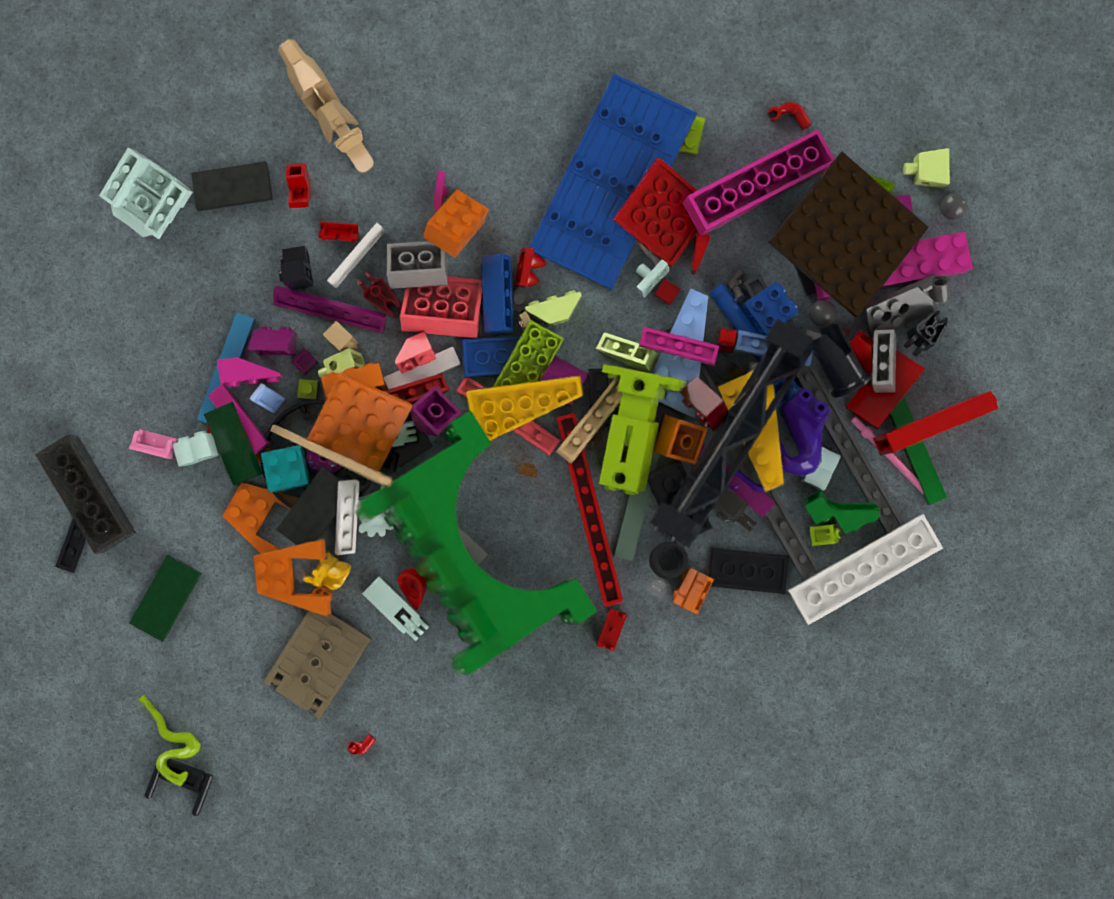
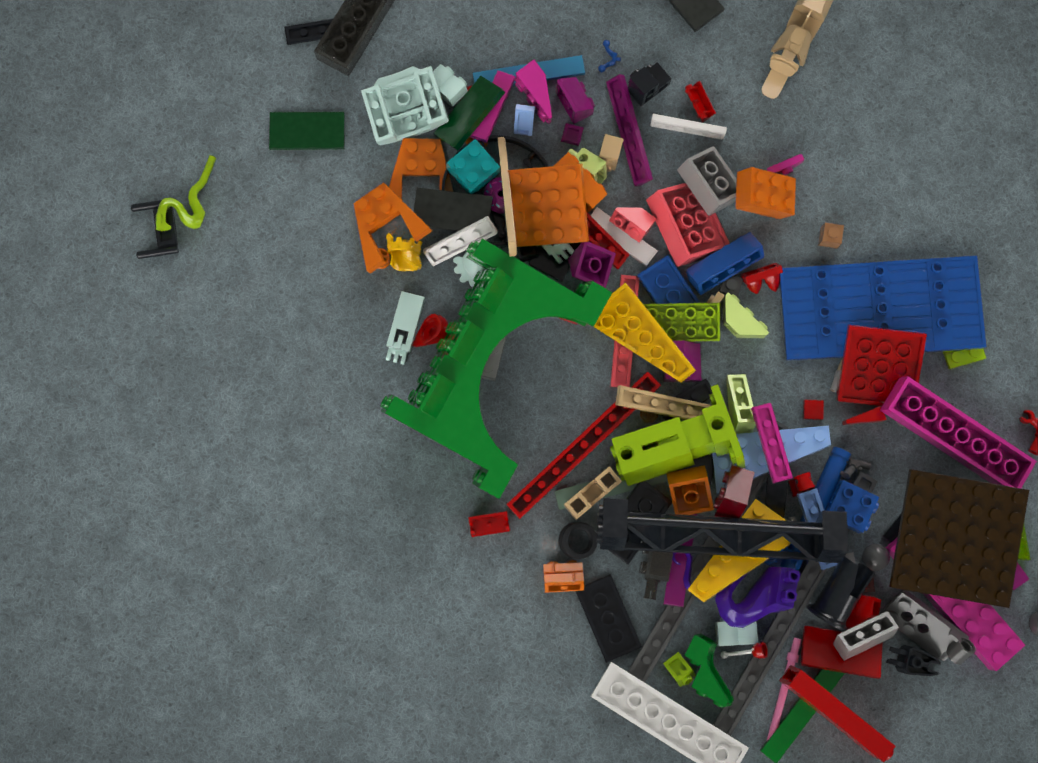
camera: 60 degrees right, 5 degrees down
(153, 444) = (431, 48): bright pink hinge -> none
(192, 498) = (404, 105): none -> light aqua slope
(259, 301) = (601, 68): none -> blue piece
(299, 185) = (719, 46): red brick -> none
(308, 389) = (550, 150): lime plate -> none
(317, 661) = (323, 286): dark tan door -> none
(361, 747) = (268, 363): red arm -> none
(378, 292) = (667, 162): dark red hinge -> none
(524, 187) = (831, 235): none -> medium nougat brick
(528, 469) = (587, 374): clear orange plate -> none
(635, 526) = (592, 493): none -> tan arch
(651, 277) = (818, 388): light aqua tile -> none
(847, 458) = (758, 650): none -> hinge

